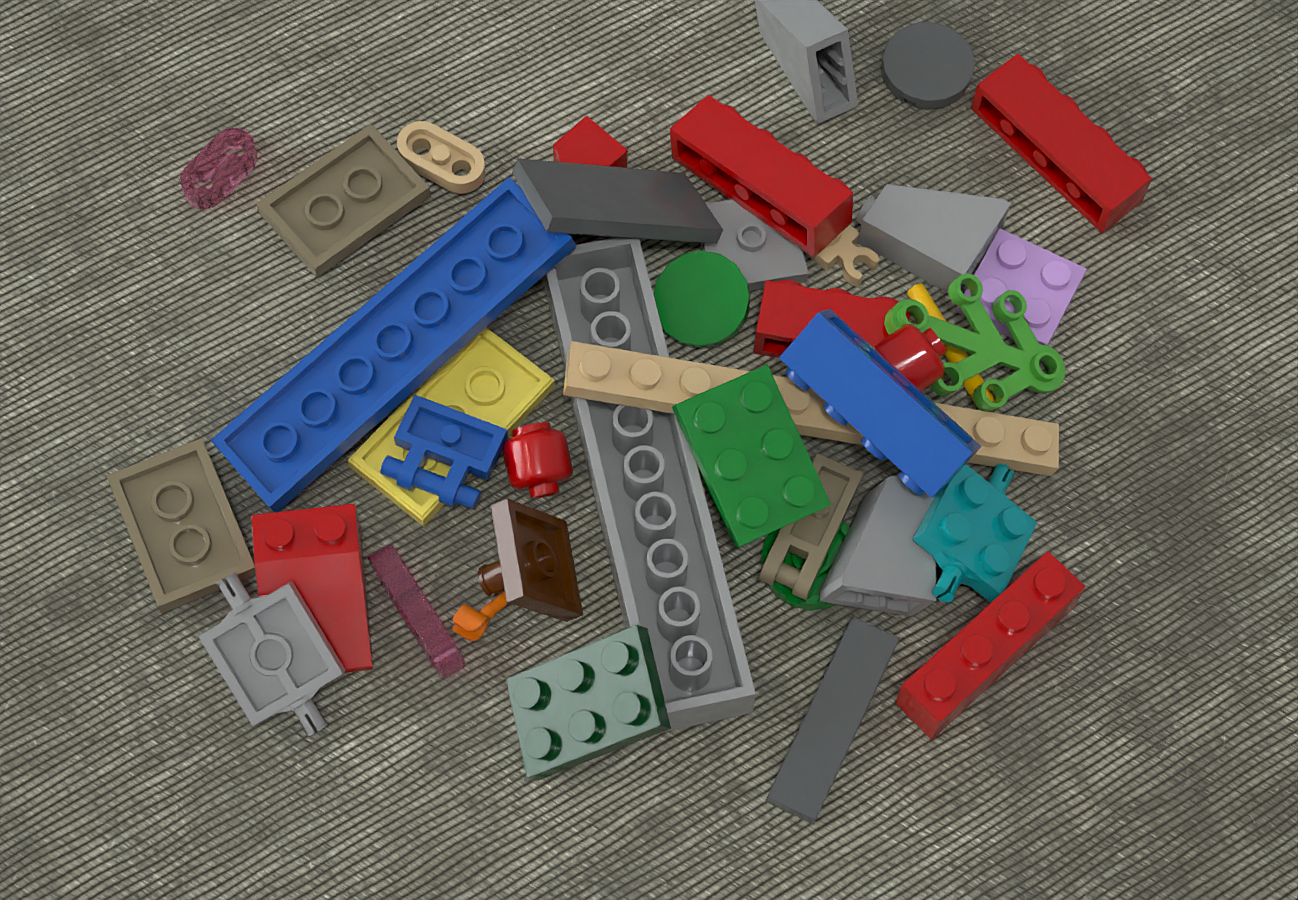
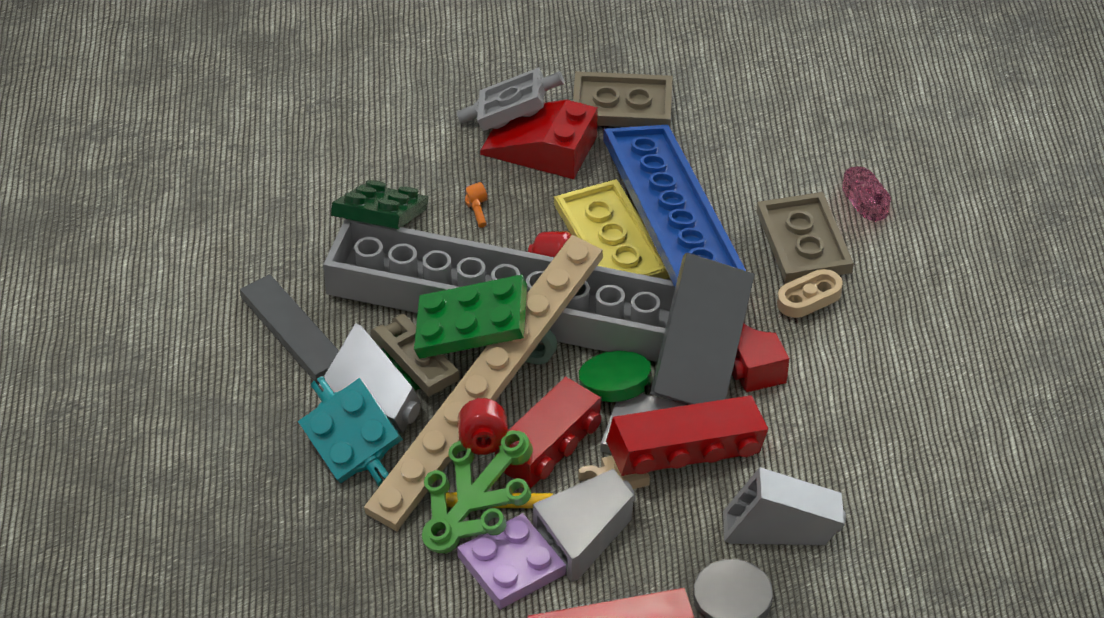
camera: 120 degrees right, 20 degrees down
(416, 611) = (485, 163): clear pink beam -> none
(449, 438) = (593, 212): blue plate -> none
(534, 562) = (484, 212): reddish brown tile -> none
(879, 403) = (455, 379): blue brick -> none
(989, 645) = (274, 410): red brick -> none

